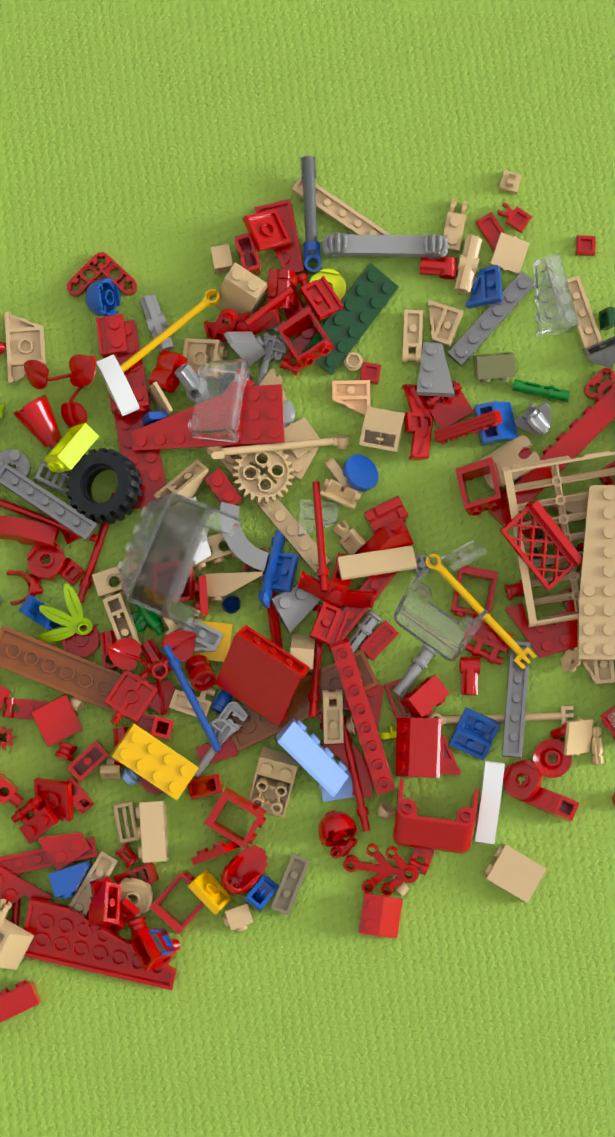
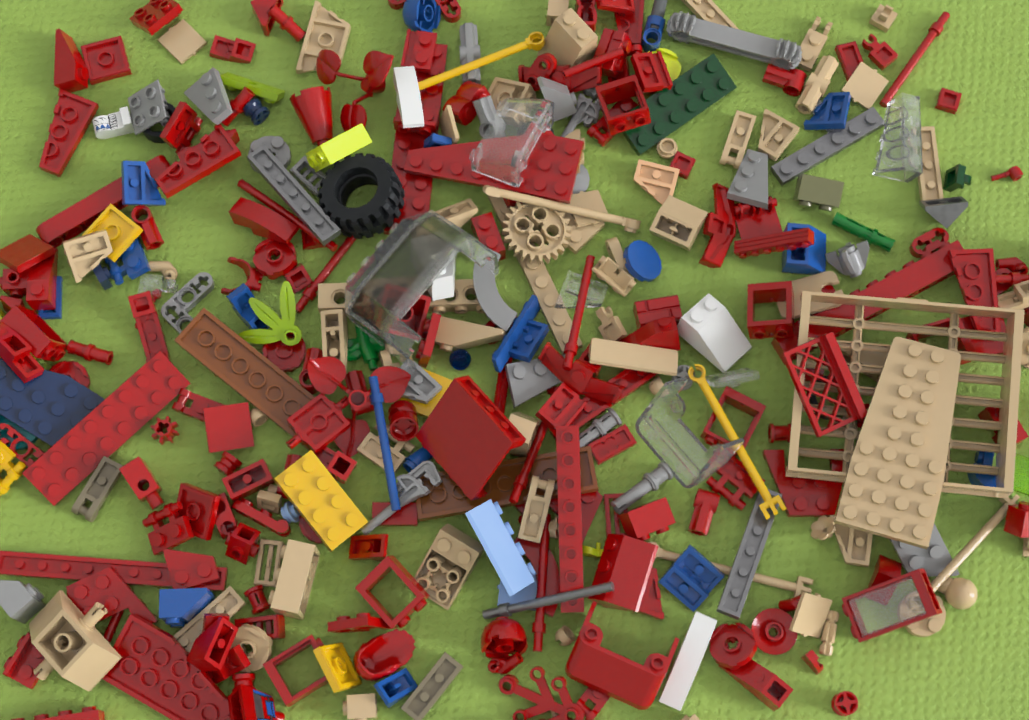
camera: 15 degrees right, 10 degrees down
(100, 814) = (243, 543): none -> red brick
(109, 786) = (261, 517): none -> red plate
(332, 804) = (507, 609): none -> flat silver bar
(403, 579) = (655, 385): none -> tan hinge
(438, 520) = (714, 333): none -> white slope
(558, 181) = (934, 31): none -> red bar
(587, 771) = (810, 659): none -> red tile

